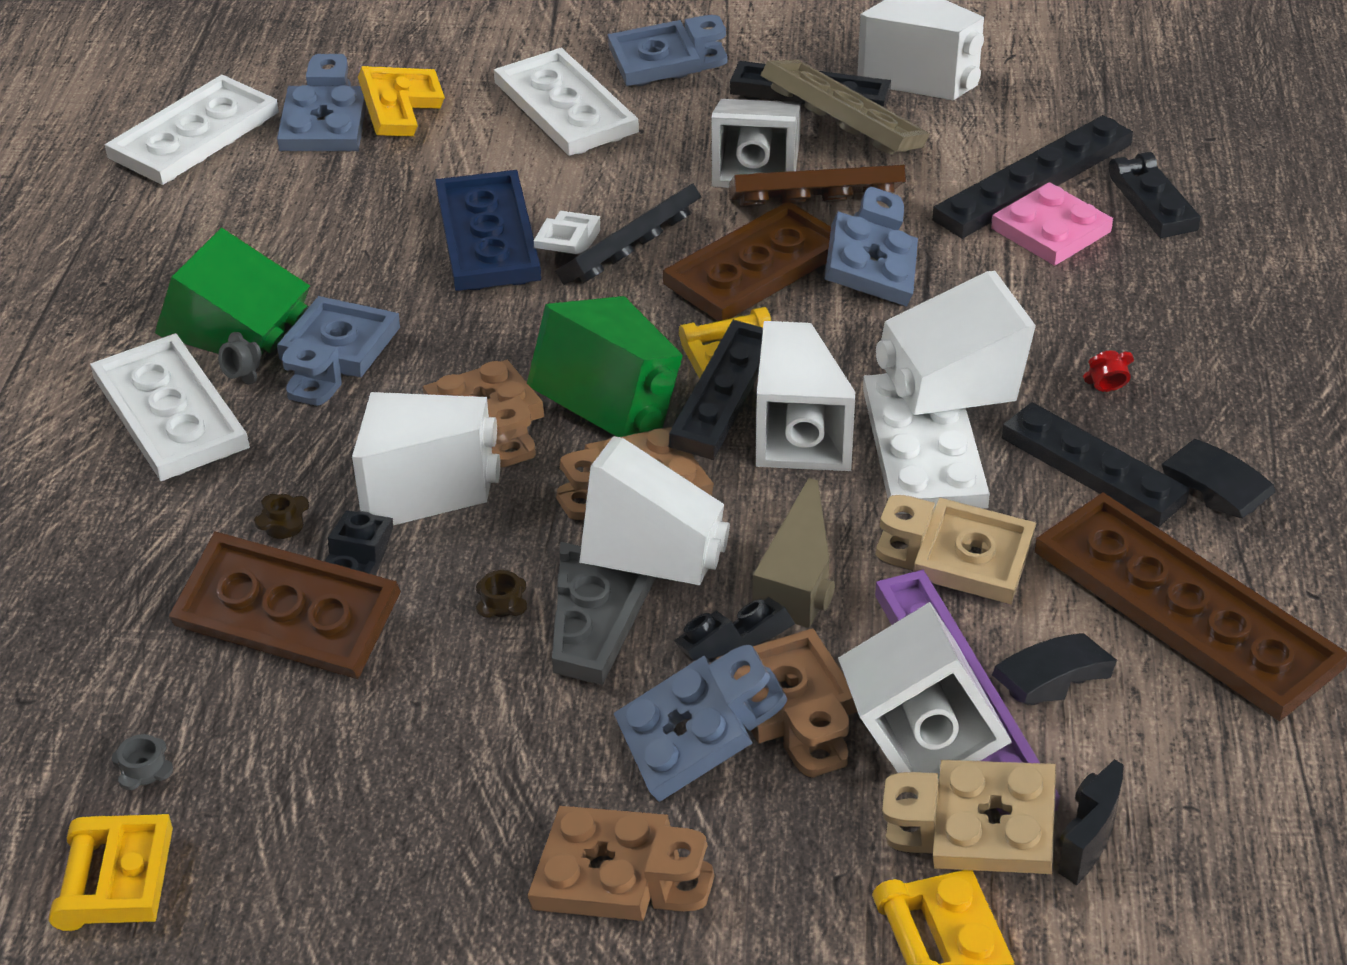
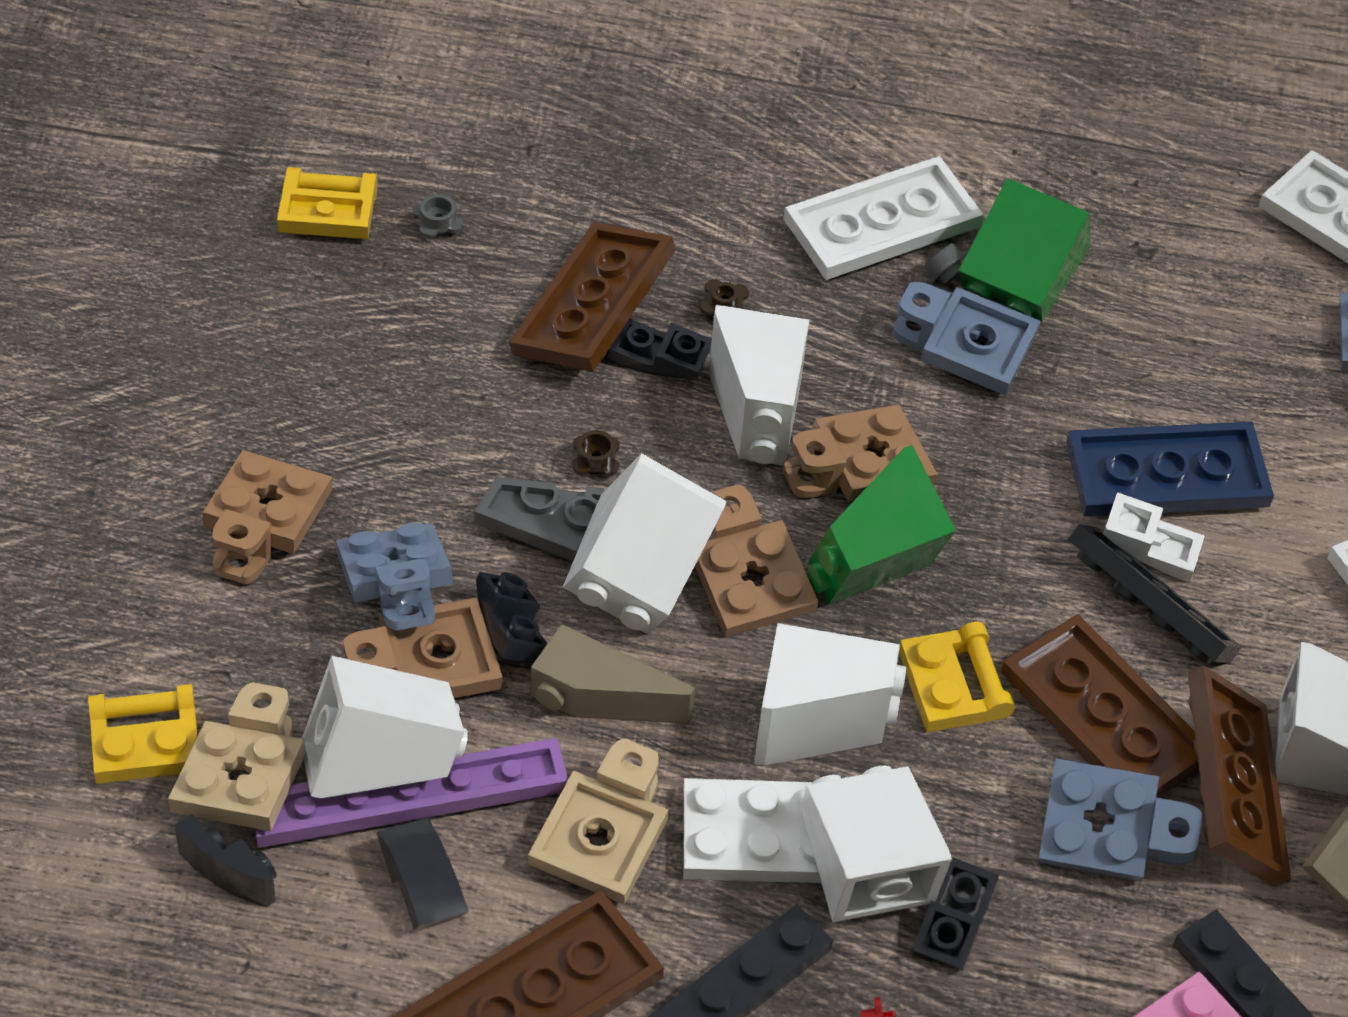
camera: 90 degrees right, 10 degrees up
(719, 392) = (795, 606): black plate -> none

